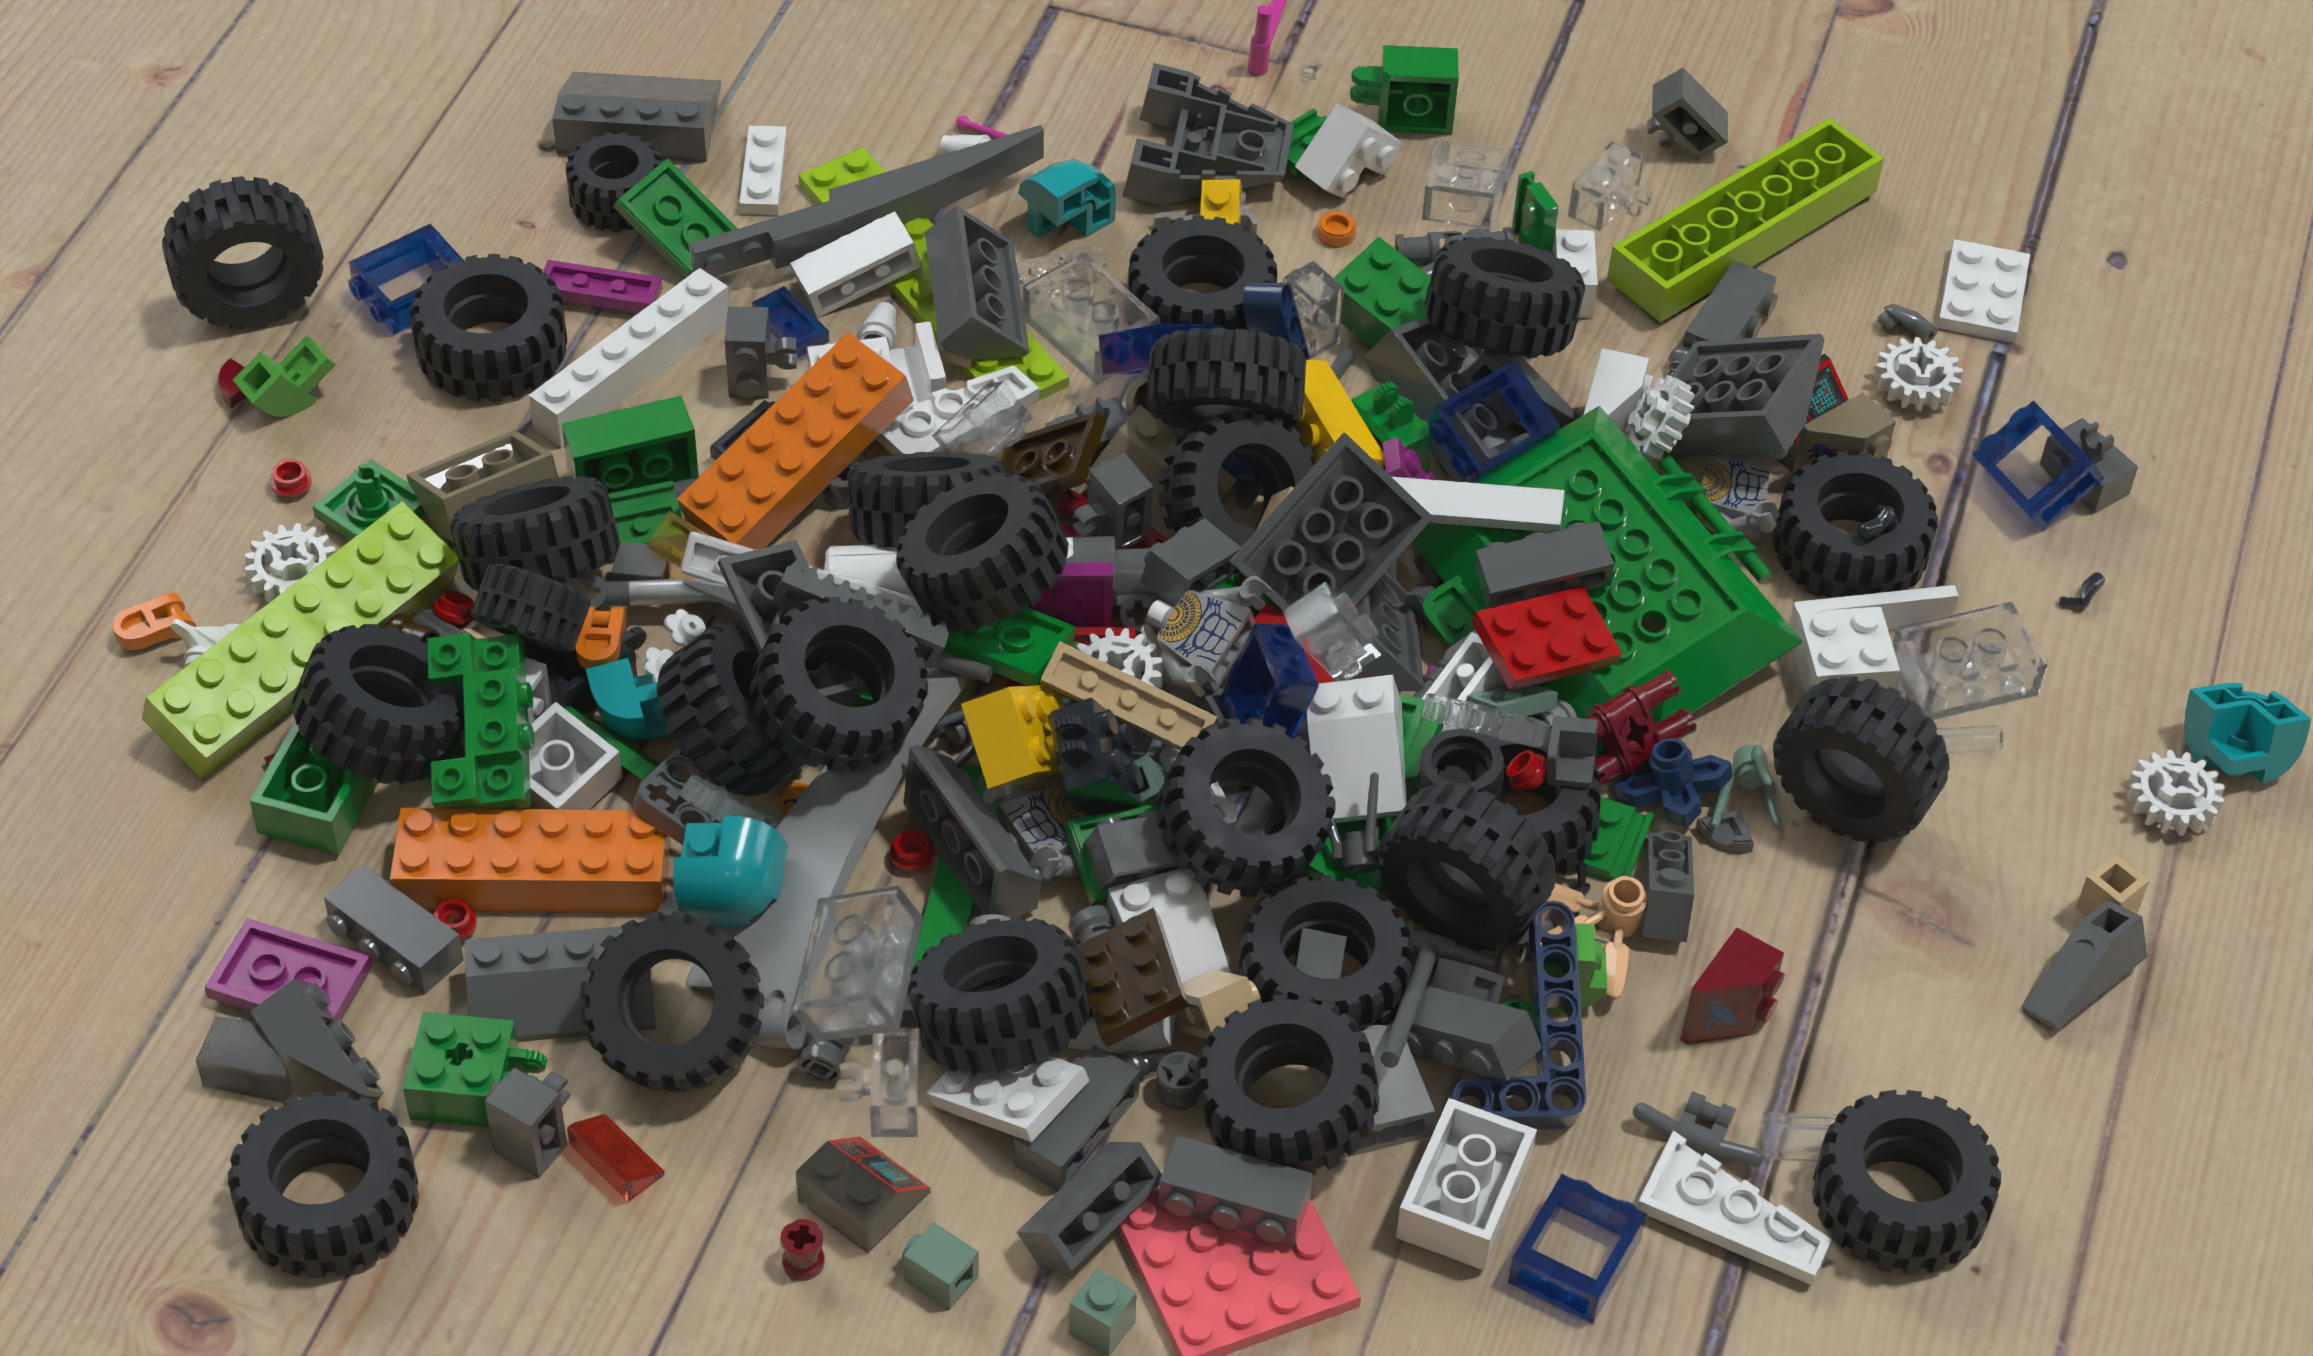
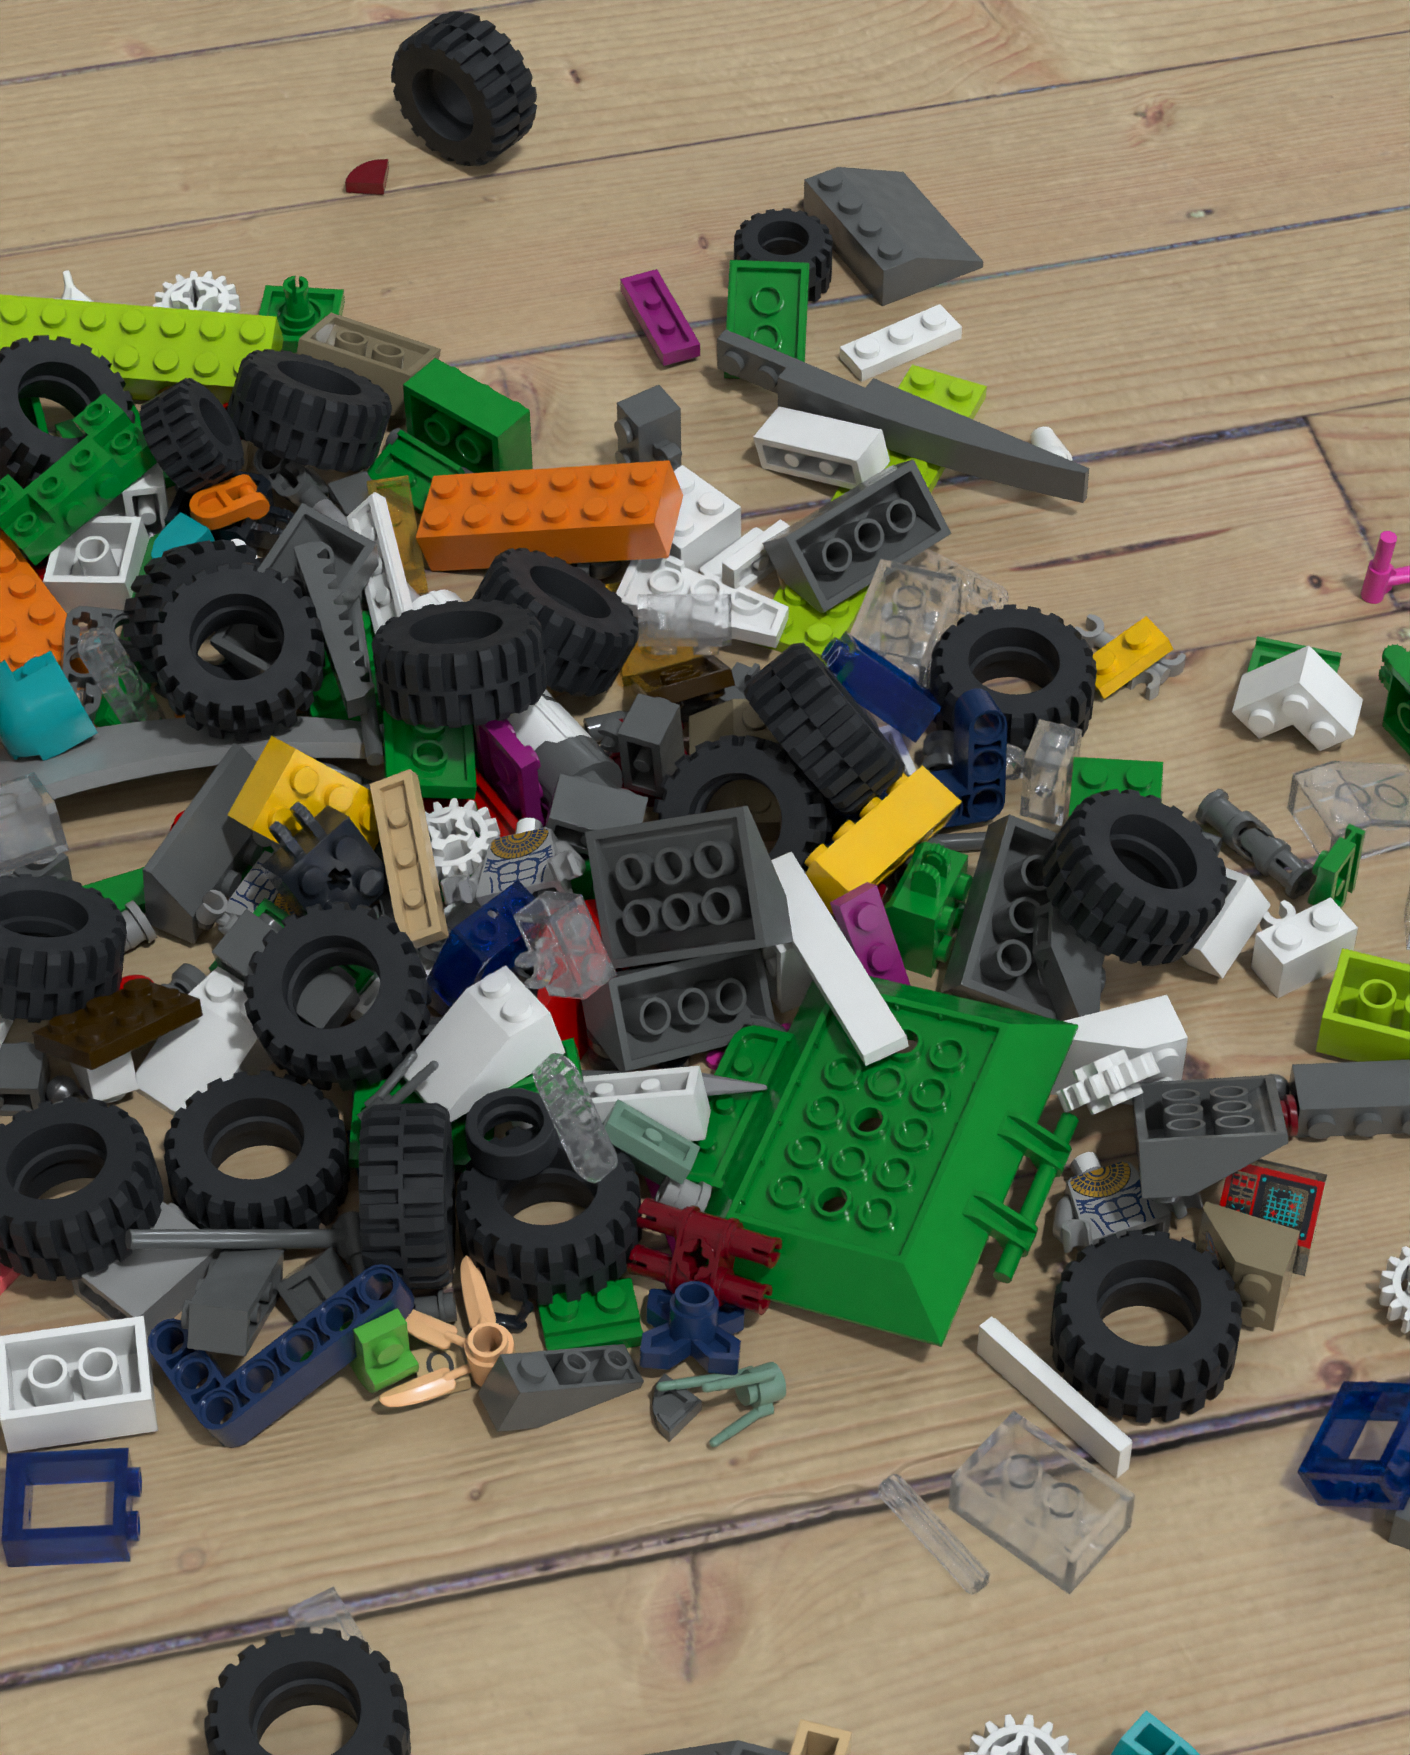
camera: 60 degrees right, 0 degrees up
(138, 625) = (78, 262): orange plate -> none
(285, 386) = (377, 201): bright green brick -> none
(290, 478) = (292, 260): red plate -> none
(392, 261) = (566, 183): clear blue window -> none
(497, 361) = (540, 307): black tyre -> none
(631, 355) = (589, 371): white brick -> none
(792, 319) = (727, 449): clear blue plate -> none
(880, 323) = (766, 507): white cone -> none
(964, 123) = (1102, 483): dark pink hinge -> none
(1069, 193) = (1040, 535): teal brick -> none
(1211, 140) = (1214, 614): dark grey wedge -> none
(1212, 999) = (146, 1096): tan brick -> none
(1320, 954) = (258, 1154): dark grey panel -> none
(1336, 229) = (1206, 751): orange tile -> none
(1522, 400) = (1024, 963): clear blue window -> none
(1526, 771) = (549, 1183): red plate -> none
(1544, 564) = (810, 1073): dark grey brick -> none
(1546, 638) = (728, 1121): red plate -> none
(1572, 752) = (588, 1201): dark grey panel -> none
(1700, 1137) = (300, 1531): dark grey piece -> none
(1709, 1203) = (194, 1604): white wing -> none
(1734, 990) = (440, 1483): dark red slope -> none
(1845, 645) = (964, 1393): white brick -> none
(1861, 759) = (788, 1447): black tyre -> none
(1878, 524) = (1123, 1324): black piece -> none
(2088, 590) = (1256, 1577): black piece -> none

